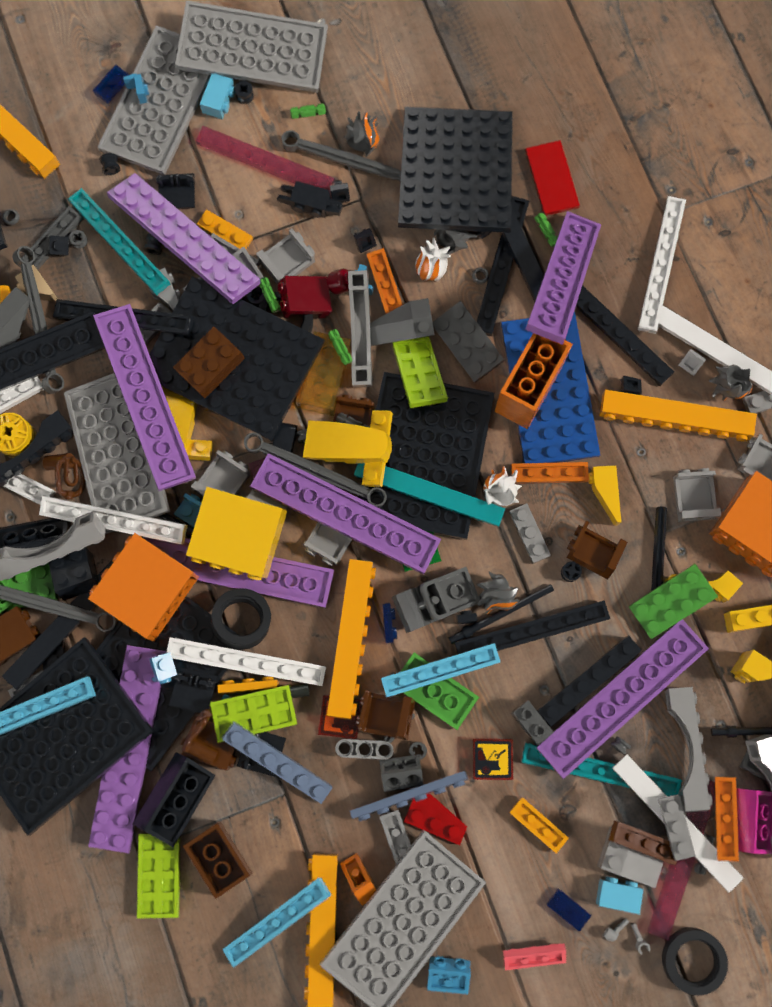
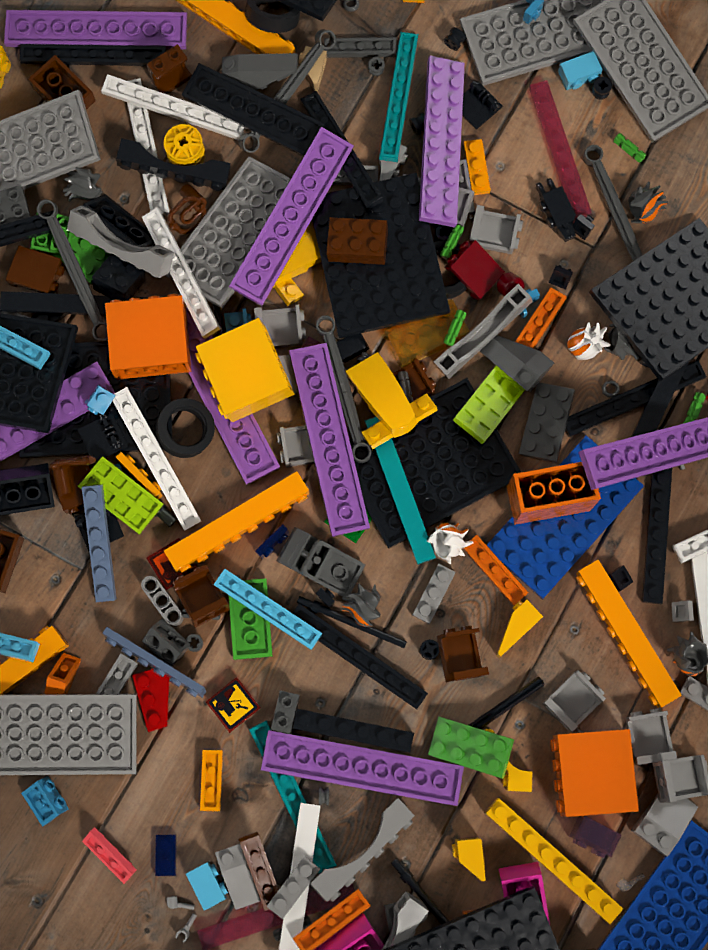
camera: 50 degrees right, 0 degrees up
(58, 245) = (358, 56): black plate -> none

